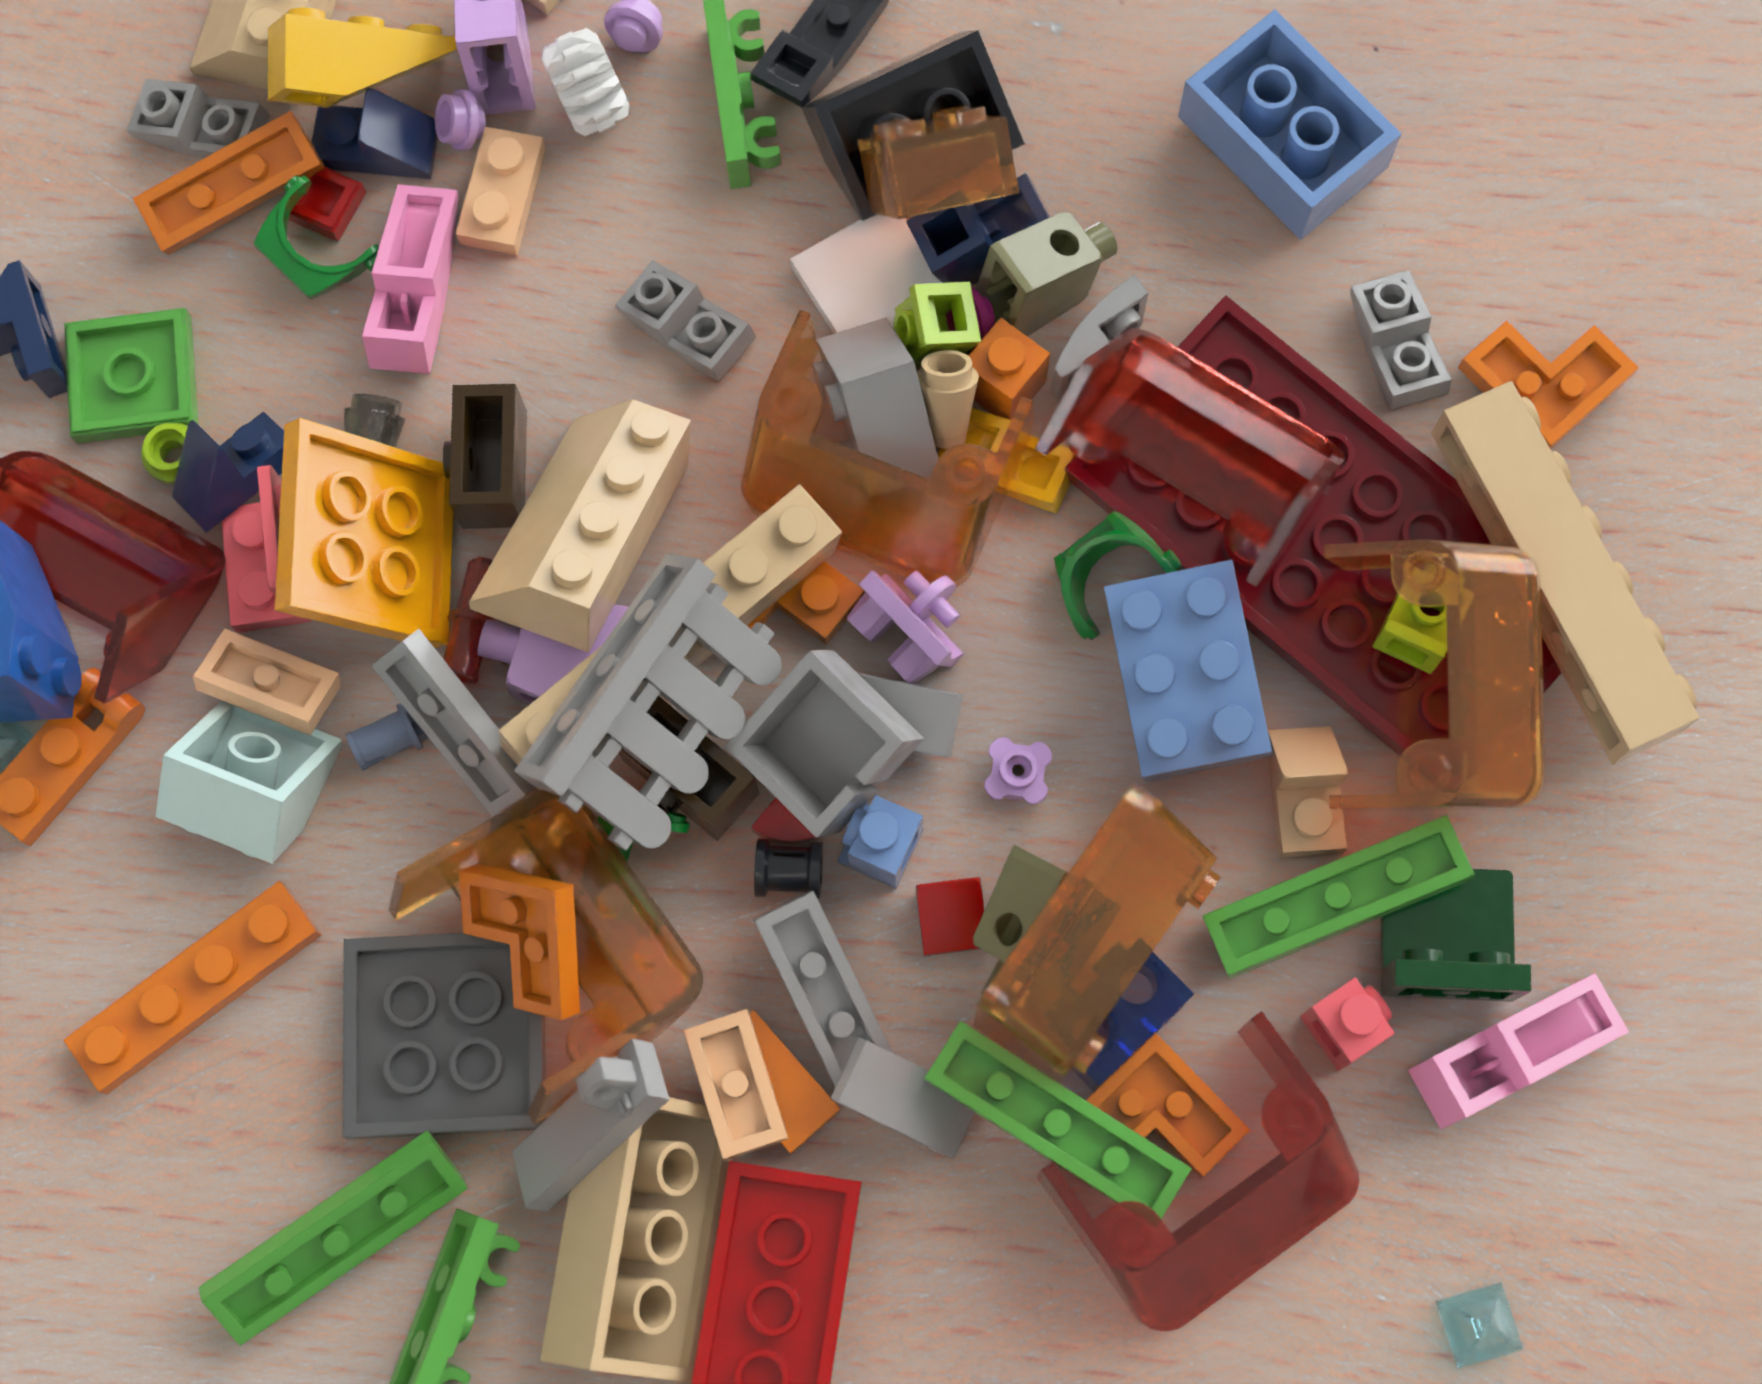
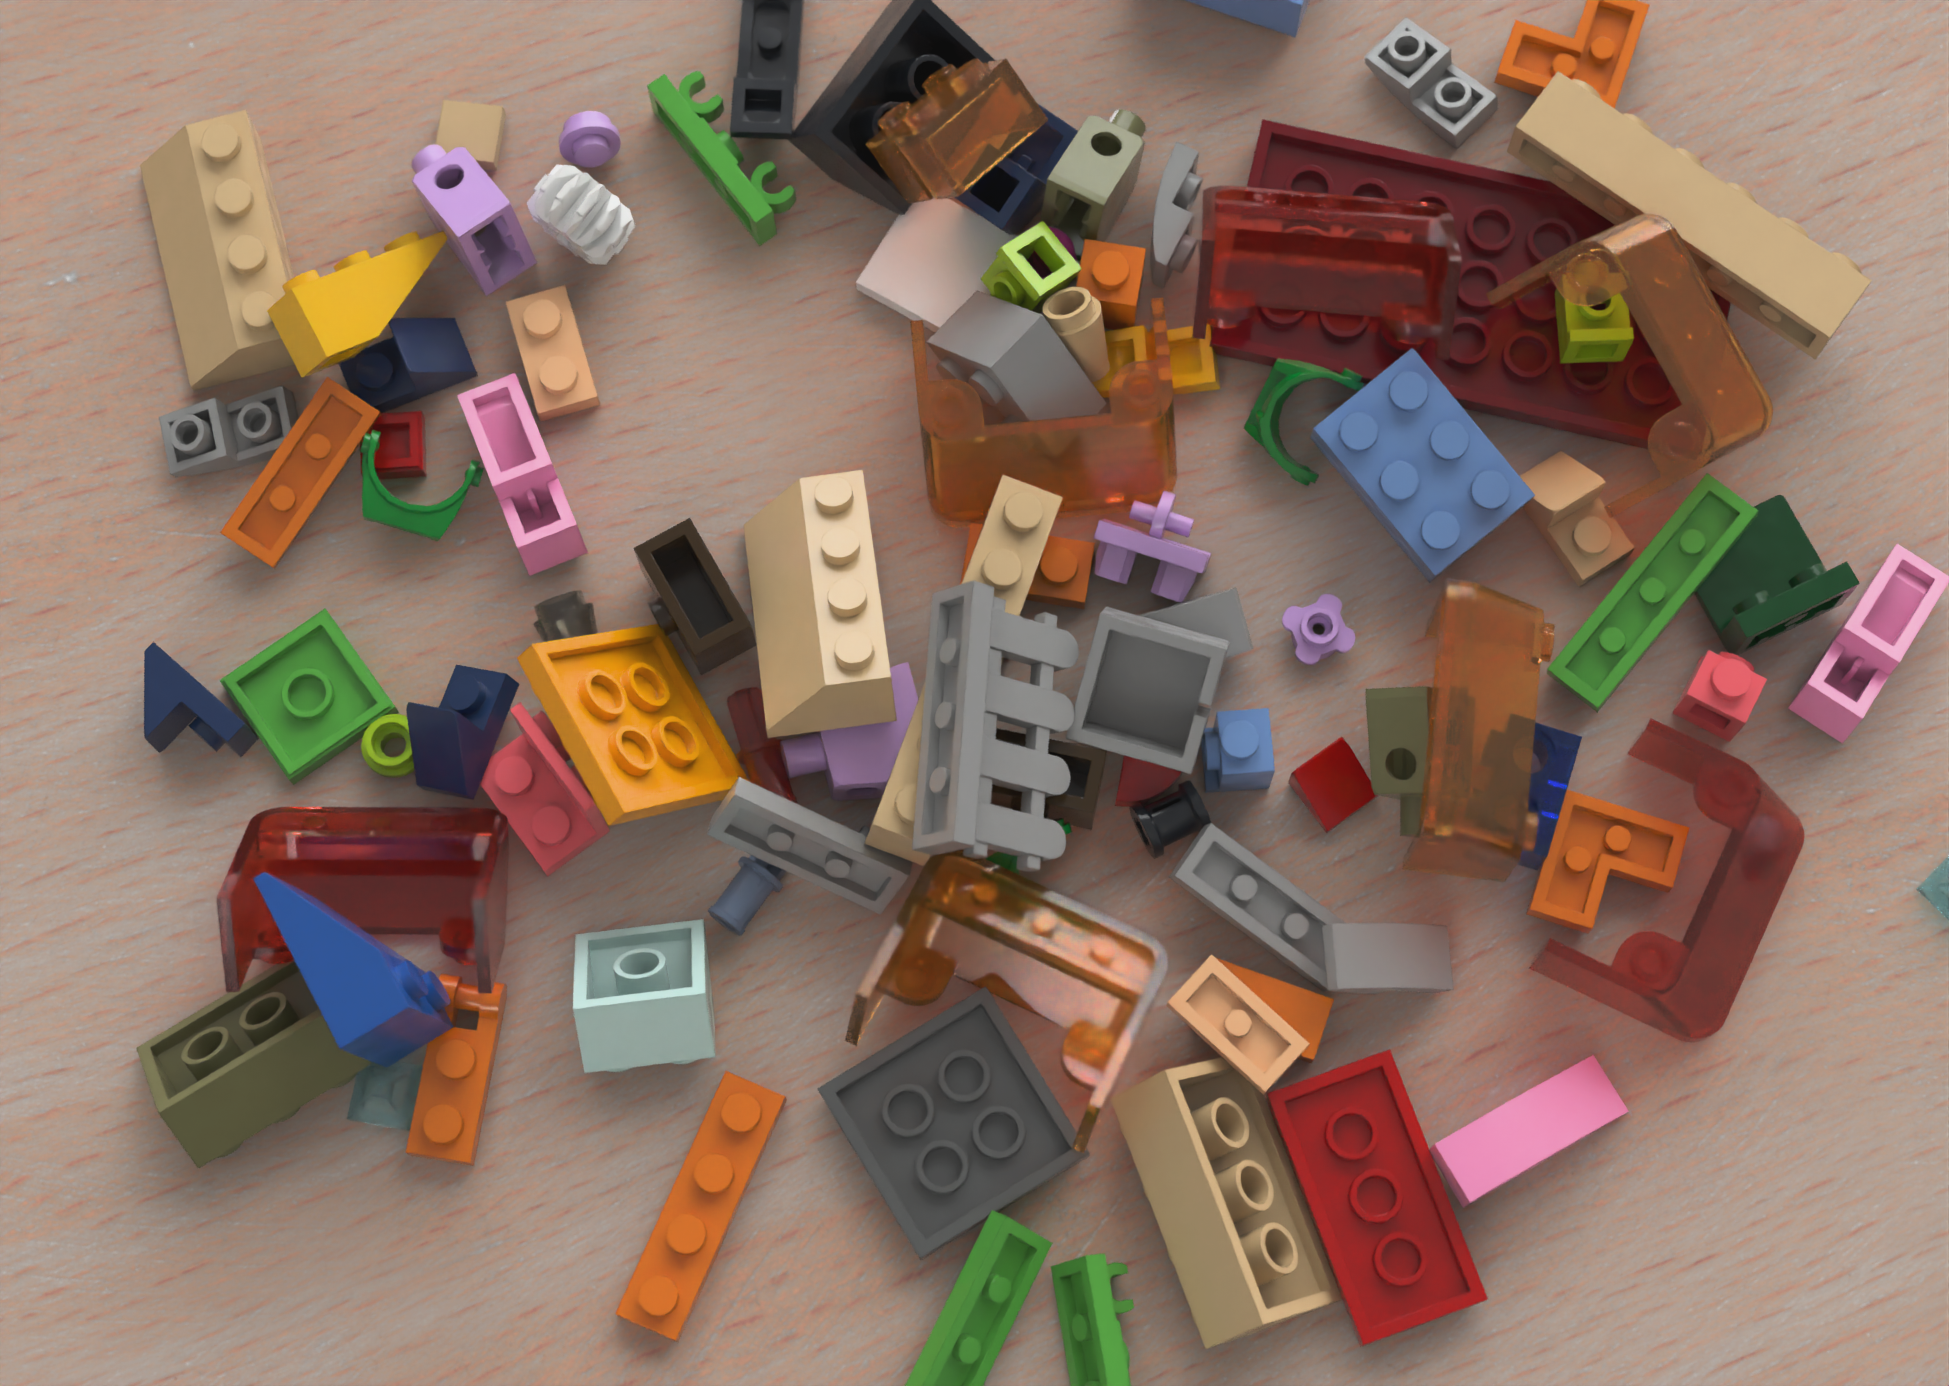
camera: 30 degrees left, 0 degrees up
(267, 681) = (609, 902): light nougat plate -> none
(459, 119) = (479, 307): lavender plate -> none
(540, 927) = (989, 975): orange plate -> none
(606, 1109) = (1137, 1124): light grey hinge -> none
(685, 322) = (791, 387): light grey slope -> none
(946, 1325) = (1527, 1130): none -> bright pink slope
(1055, 1121) = (1525, 906): bright green plate -> none

